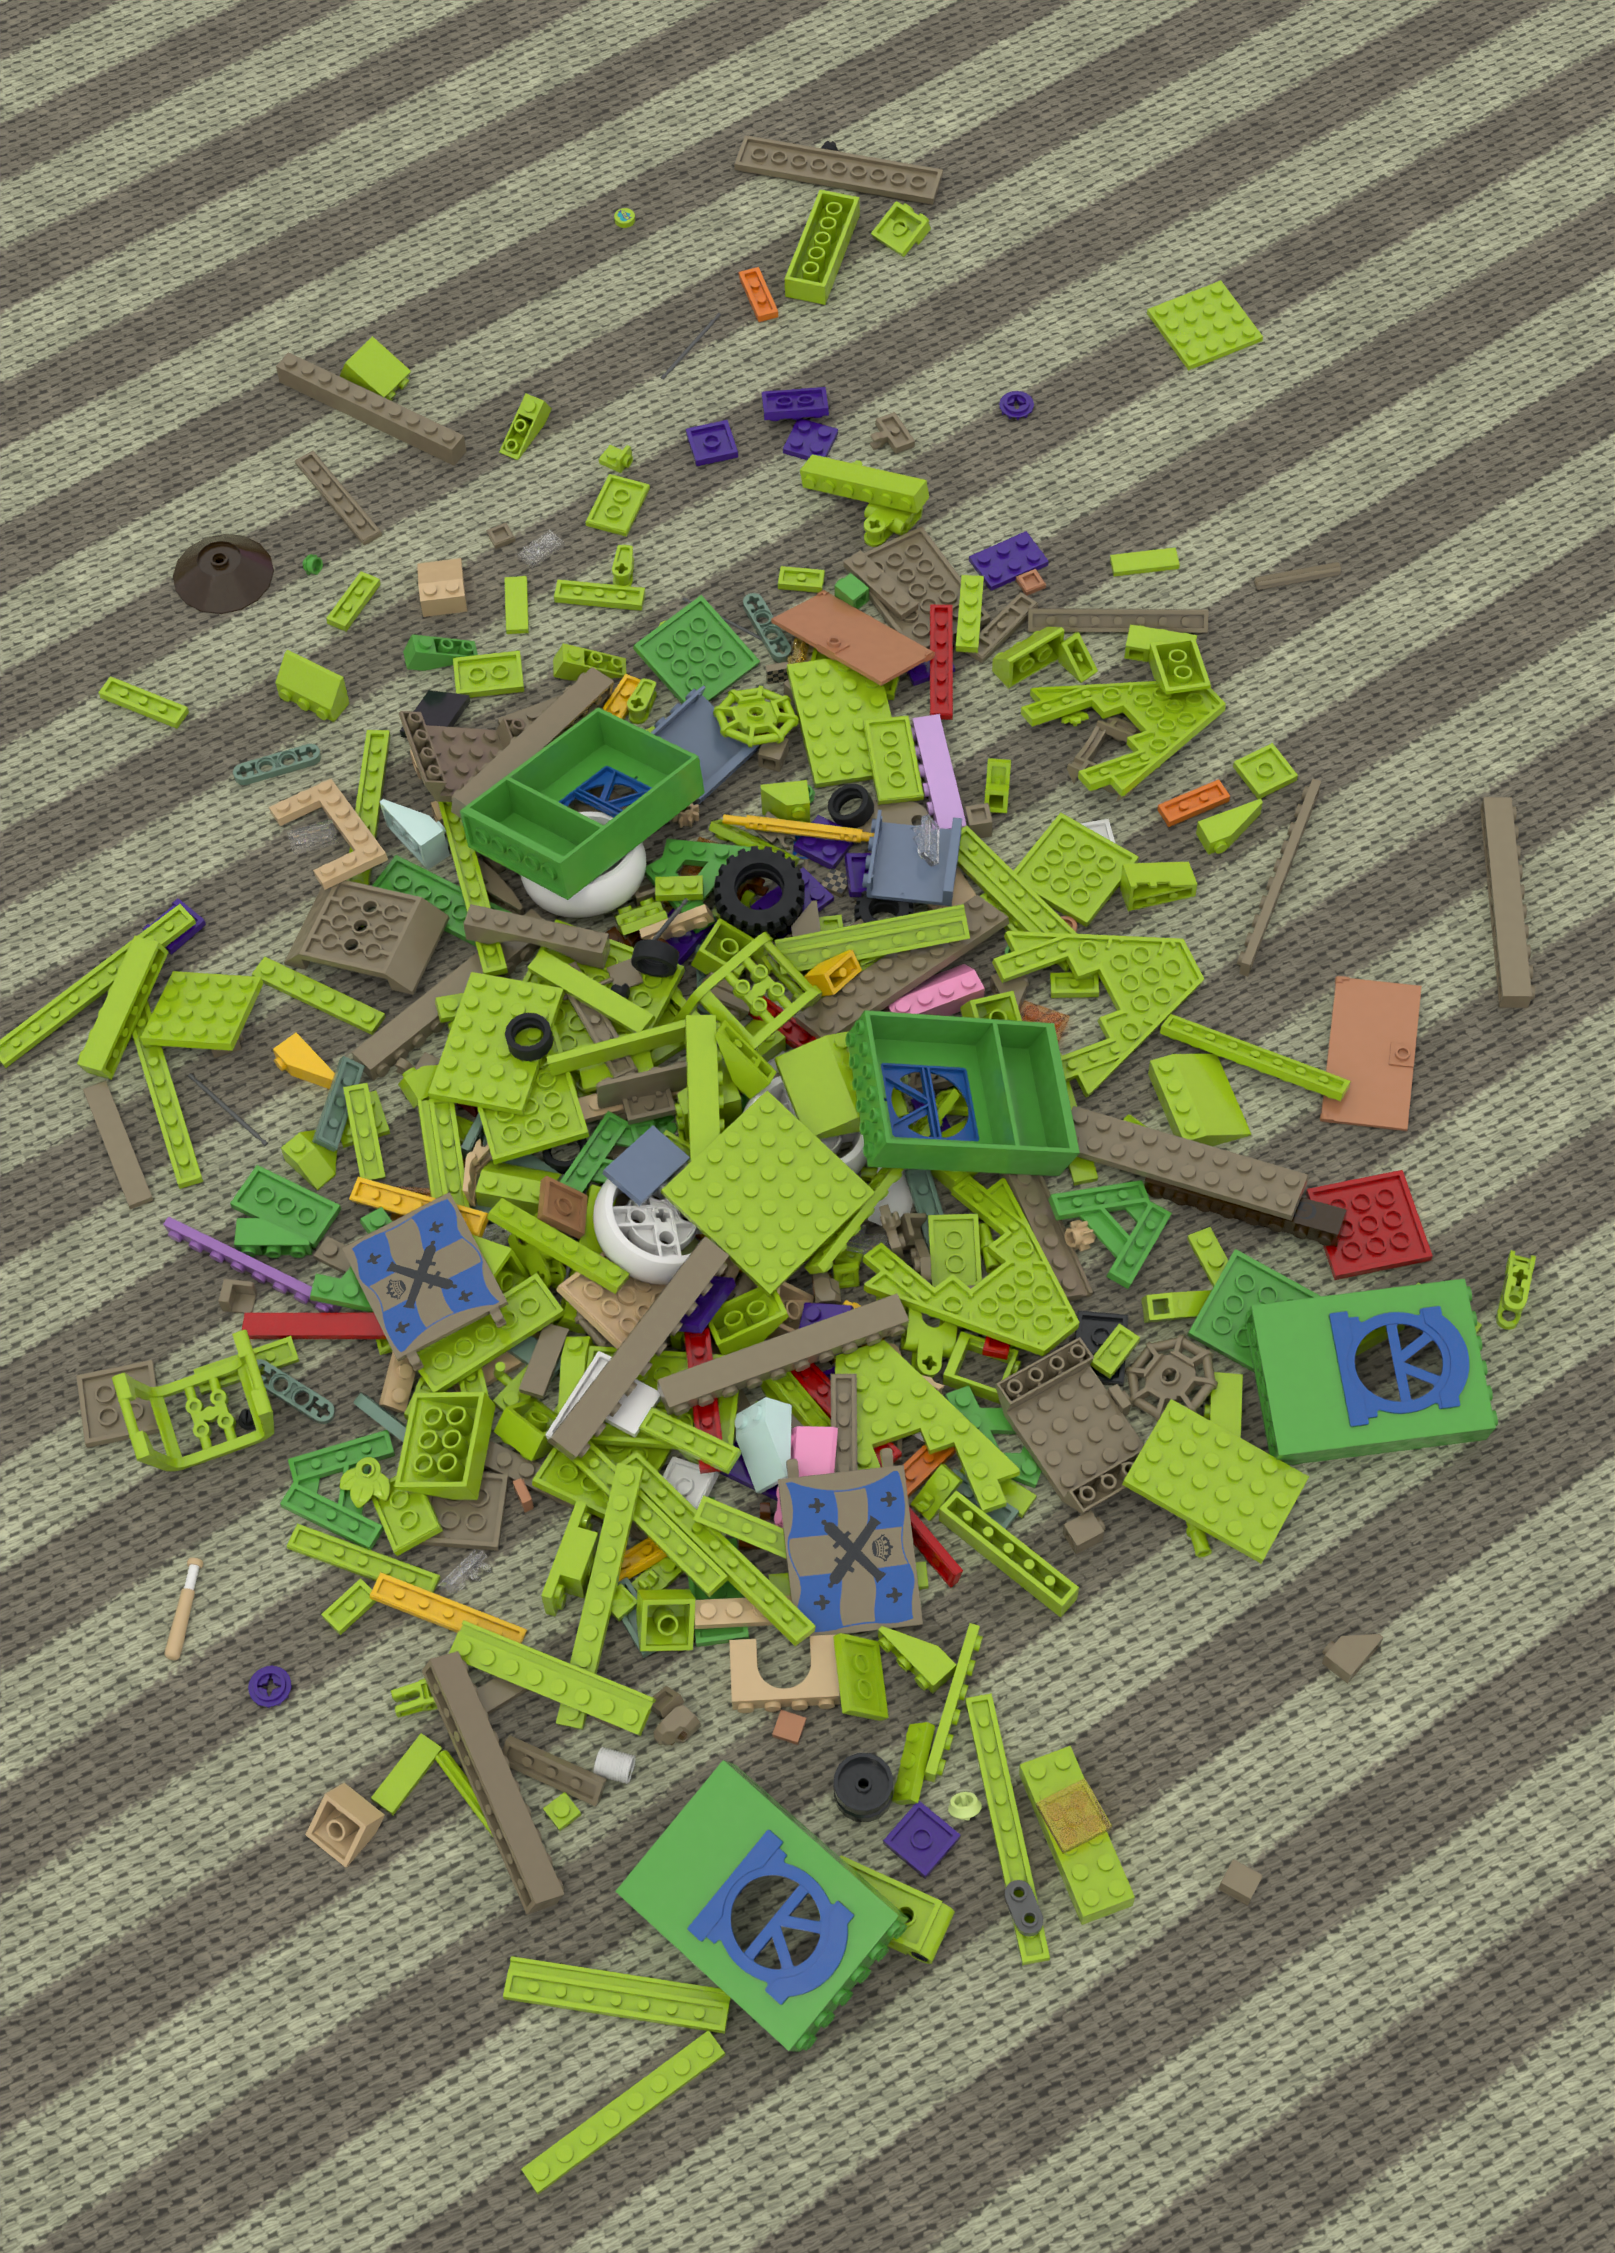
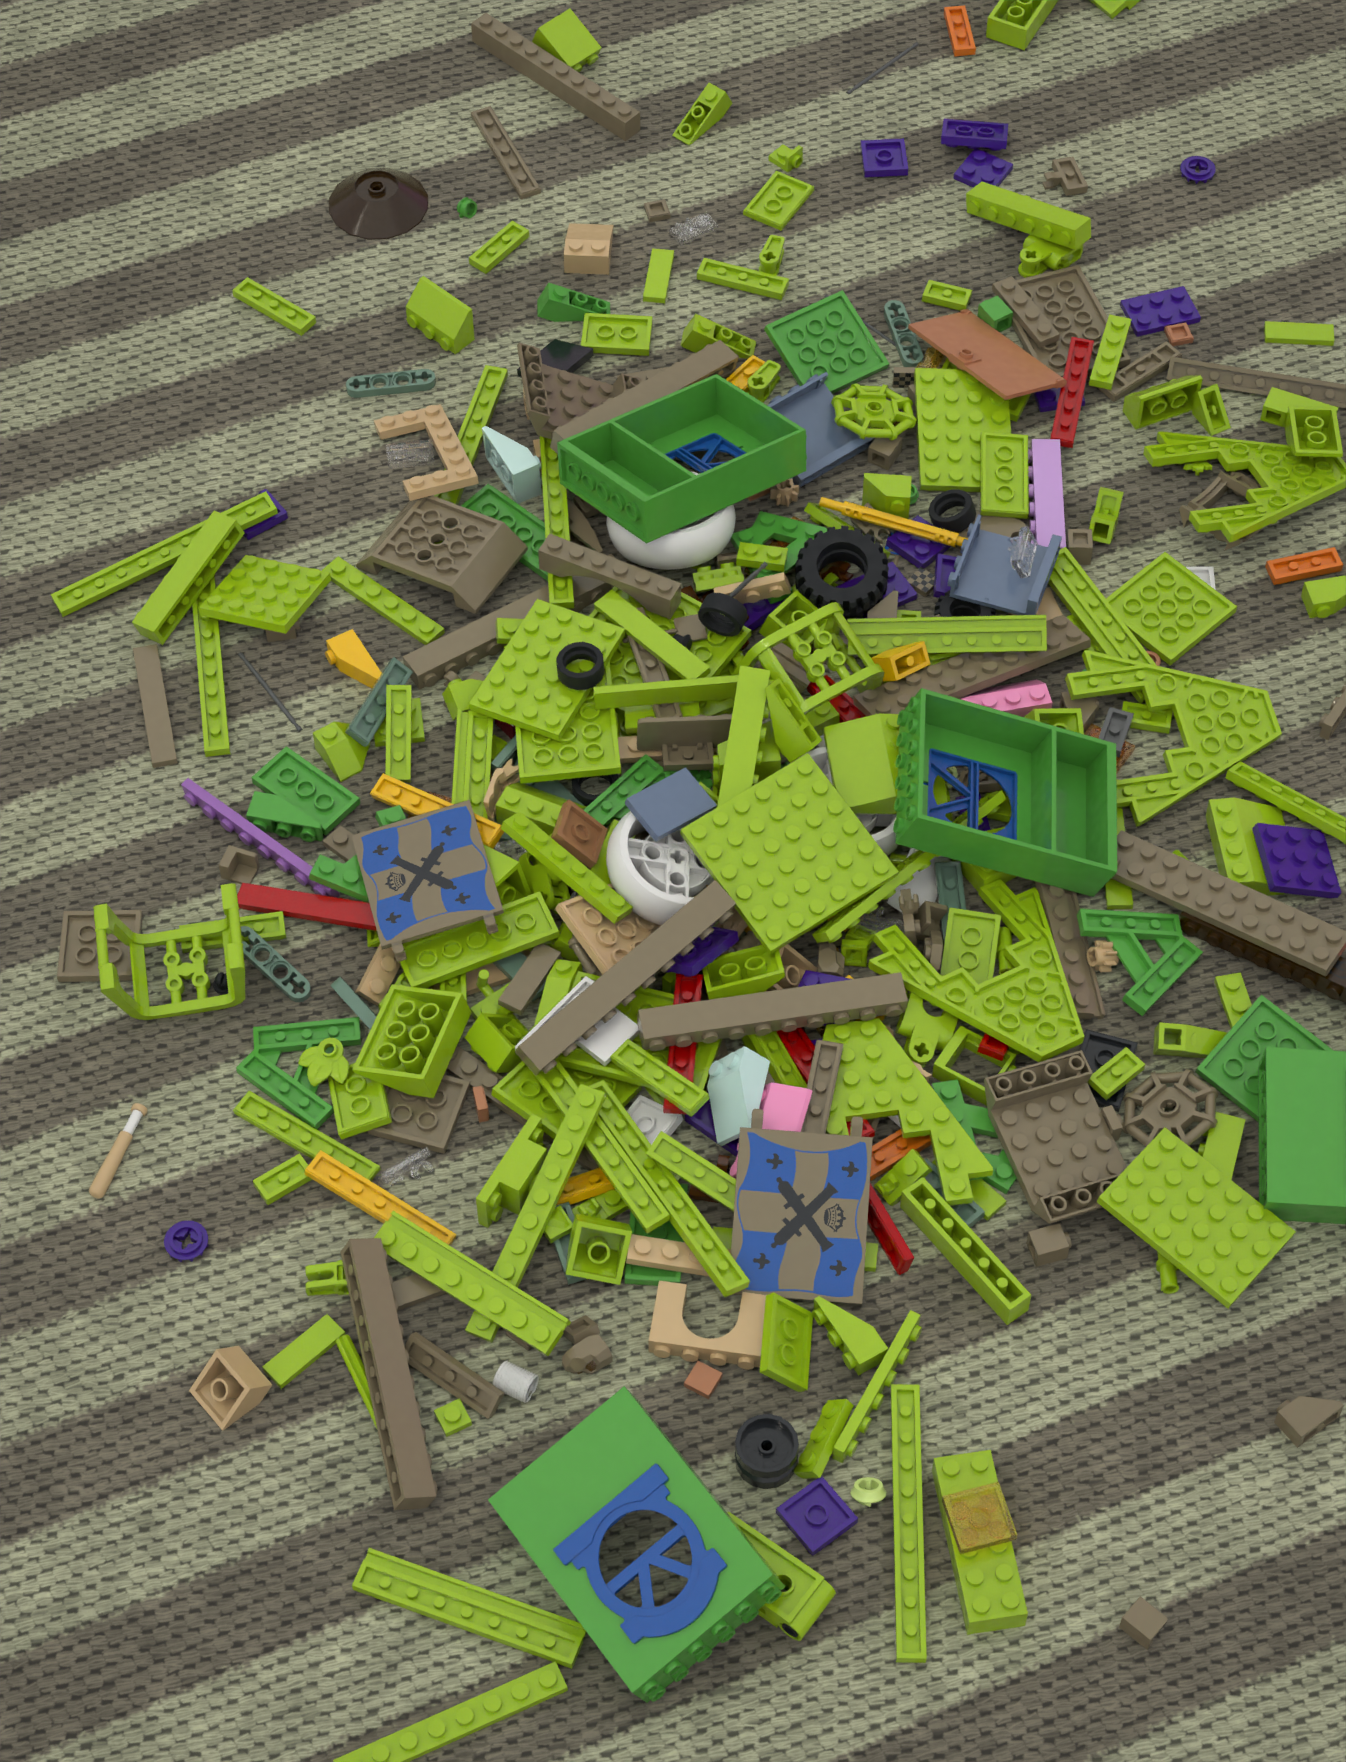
camera: 10 degrees right, 5 degrees down
(1023, 1907) = (907, 1601): dark grey plate -> none
(1048, 1004) = (1116, 727): none -> dark grey plate
(1156, 883) = (1249, 634): lime wedge -> none
(1241, 1106) = (1296, 861): none -> dark purple plate

